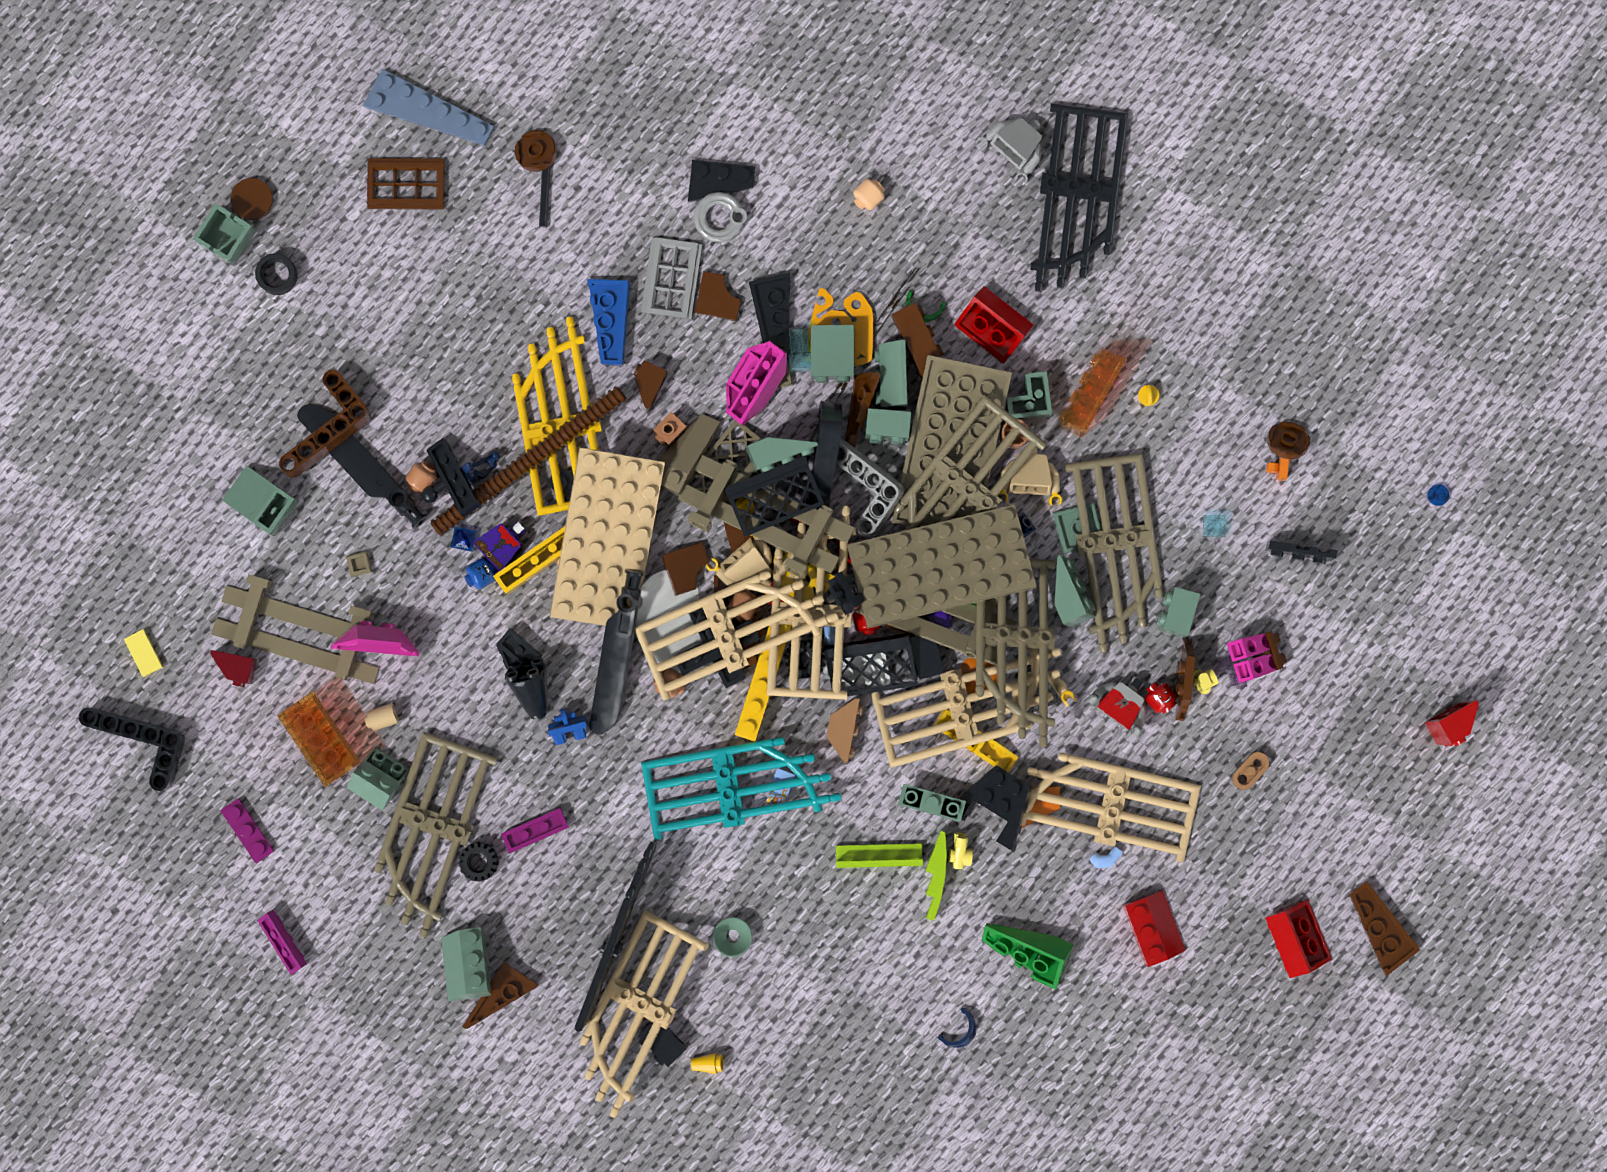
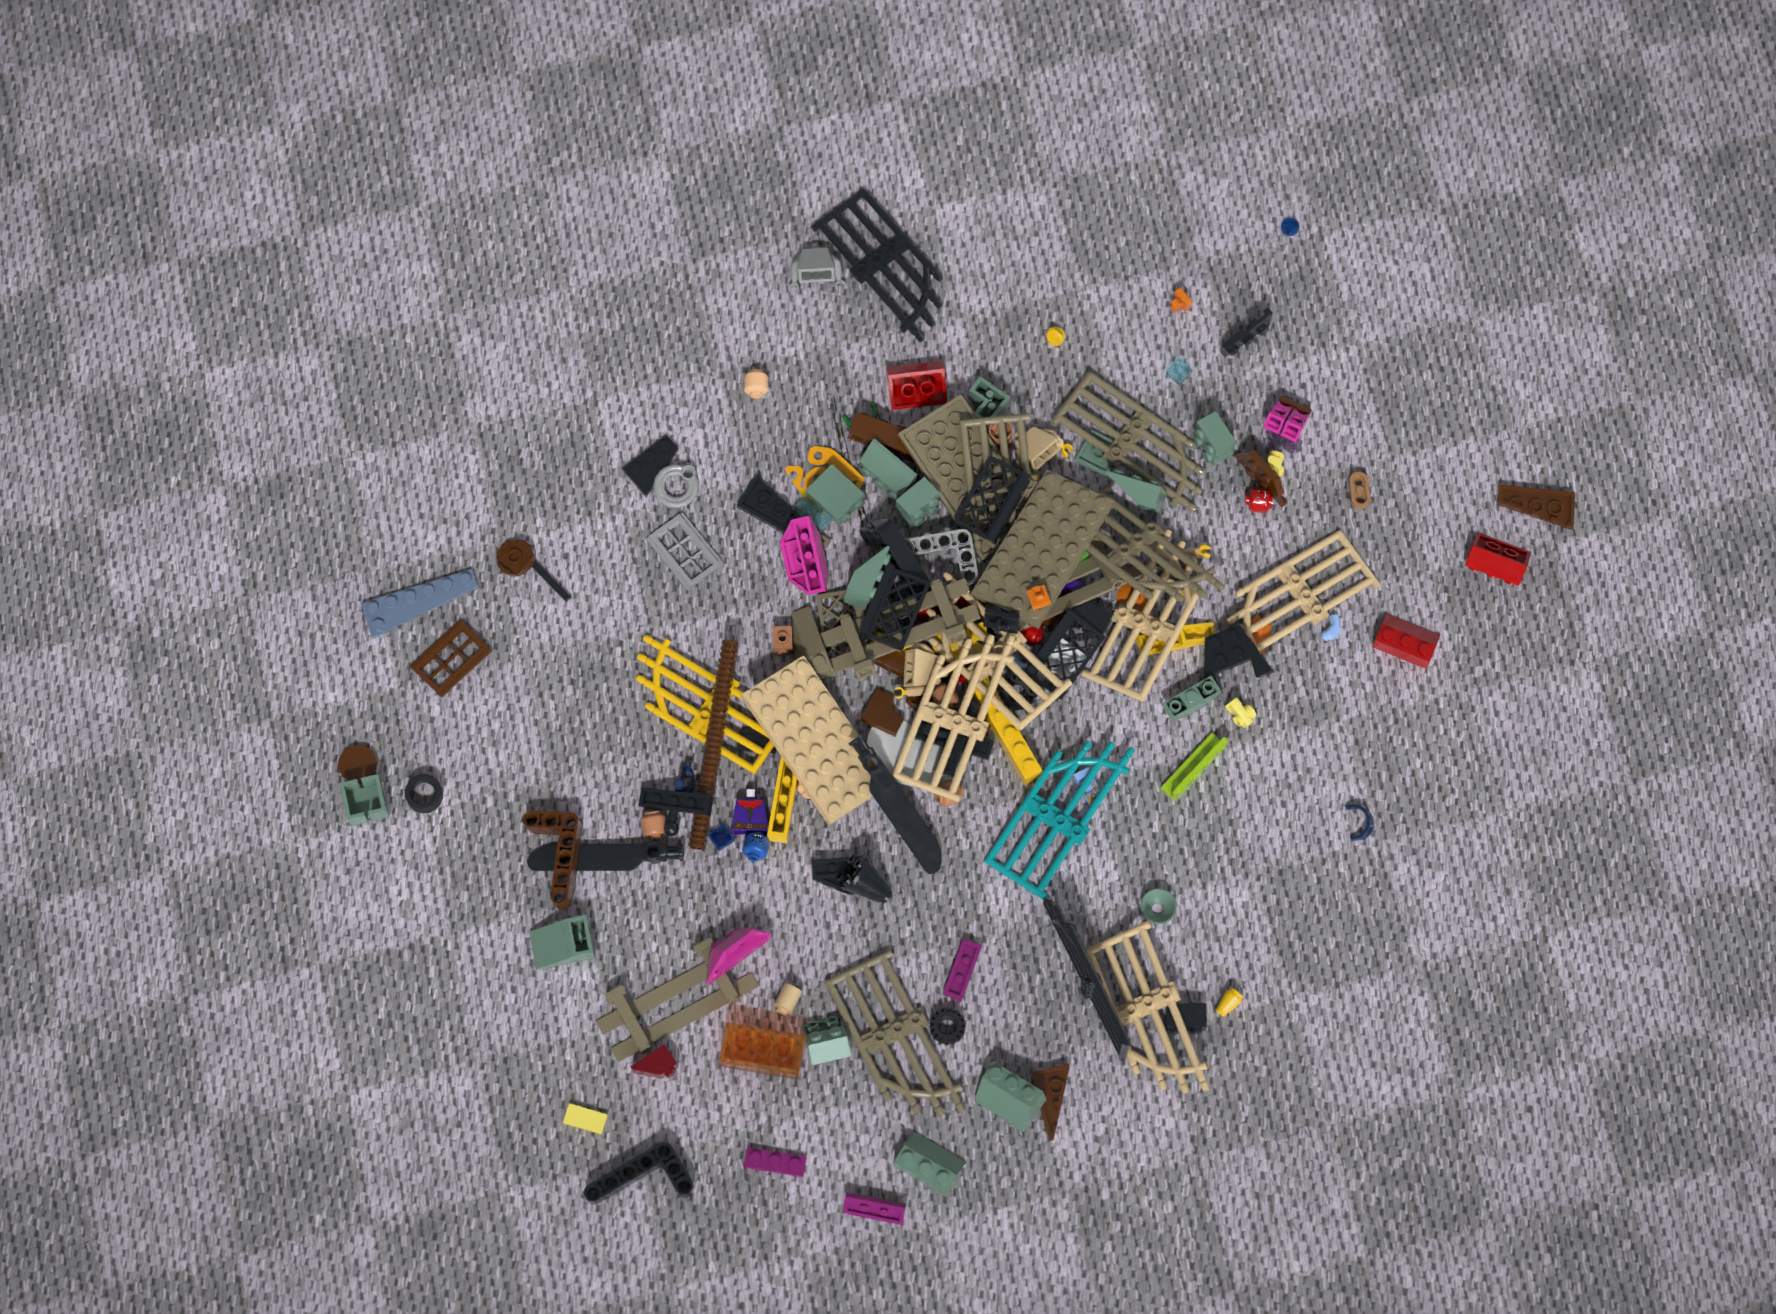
camera: 50 degrees left, 15 degrees down
(357, 951) = (929, 1163): none -> sand green slope
(359, 564) = (669, 920): dark tan tile -> none
(566, 723) = (918, 878): blue hips -> none
(610, 312) = (669, 609): blue wing -> none
(649, 382) = (738, 625): reddish brown slope -> none
(715, 299) = (726, 536): reddish brown tile -> none
(843, 728) = (1088, 712): medium nougat slope -> none
(862, 393) = (881, 503): reddish brown wing -> none
(890, 605) = (1038, 597): none -> orange tile
(936, 866) = (1239, 737): lime slope -> none
(950, 504) = (1008, 506): none -> black fence
(1037, 951) = (1351, 726): green wedge -> none
(1092, 392) = (1021, 364): clear orange slope -> none
(1121, 705) = (1241, 528): torso -> none
(1288, 440) = (1167, 279): reddish brown tile -> none
(1453, 724) = (1447, 341): red slope -> none

